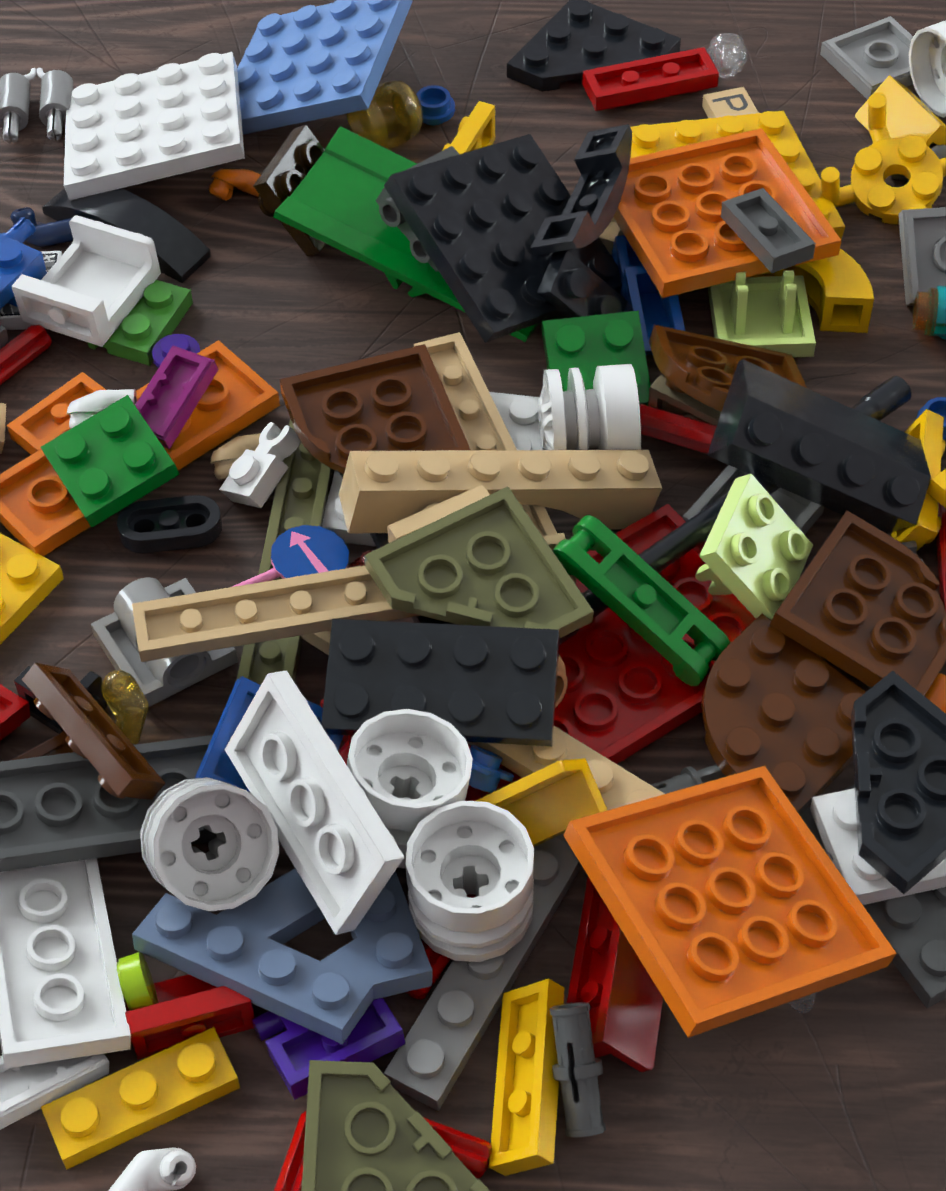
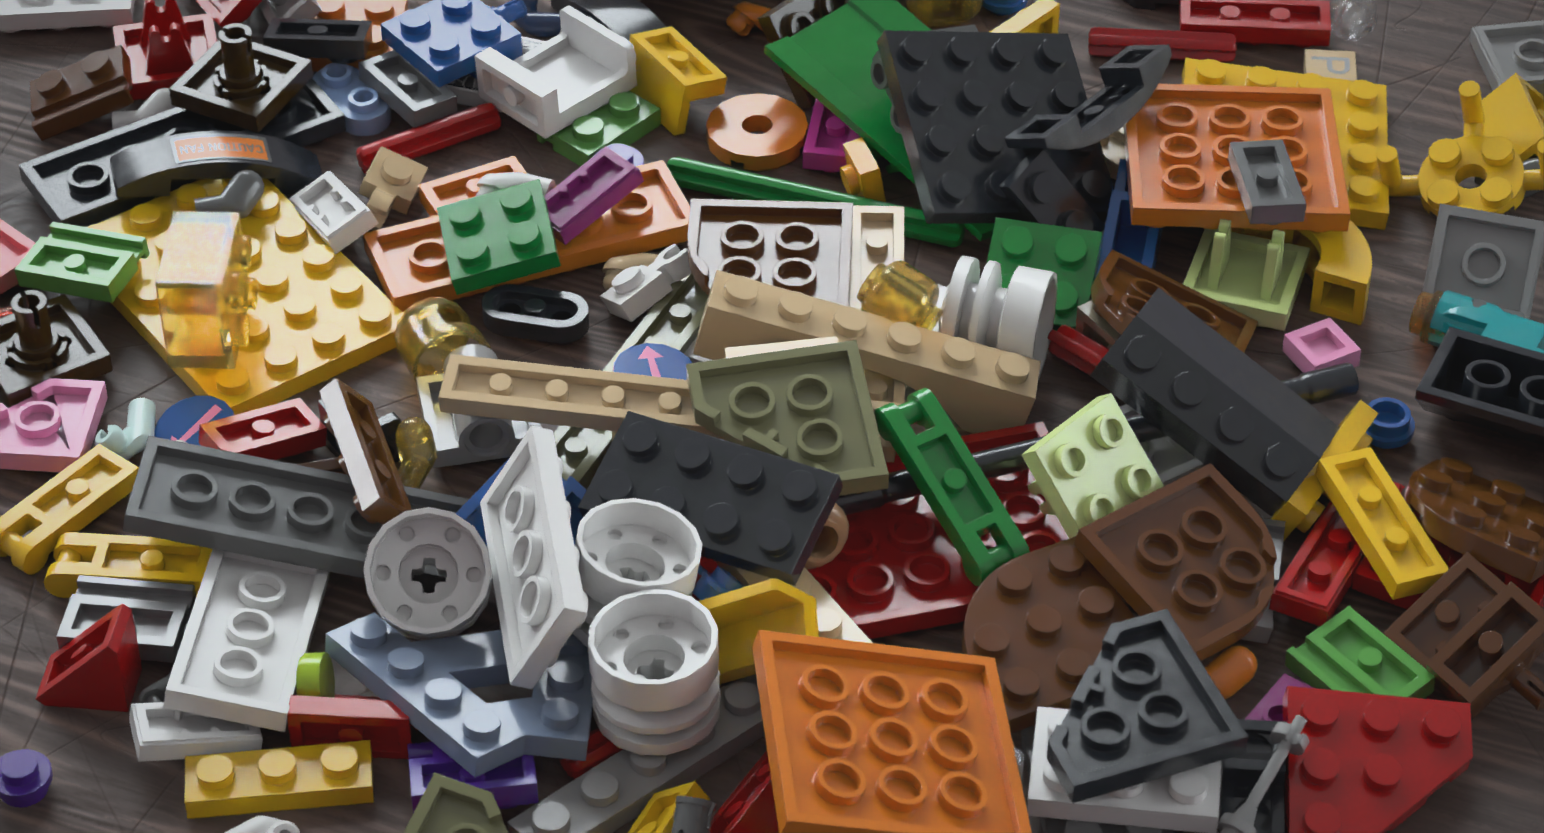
camera: 20 degrees right, 10 degrees down
(88, 569) = (431, 332): none -> clear yellow helmet
(193, 256) = (673, 74): none -> yellow panel
(277, 270) = (735, 118): none -> orange tile
(347, 342) = (753, 186): none -> green axle
(354, 282) = (825, 140): none -> dark pink plate
(399, 307) = (862, 172): none -> light orange plate
(511, 425) = (901, 295): none -> clear yellow head
(585, 119) = (1183, 44): none -> red axle
(856, 367) = (1320, 346): none -> bright pink plate

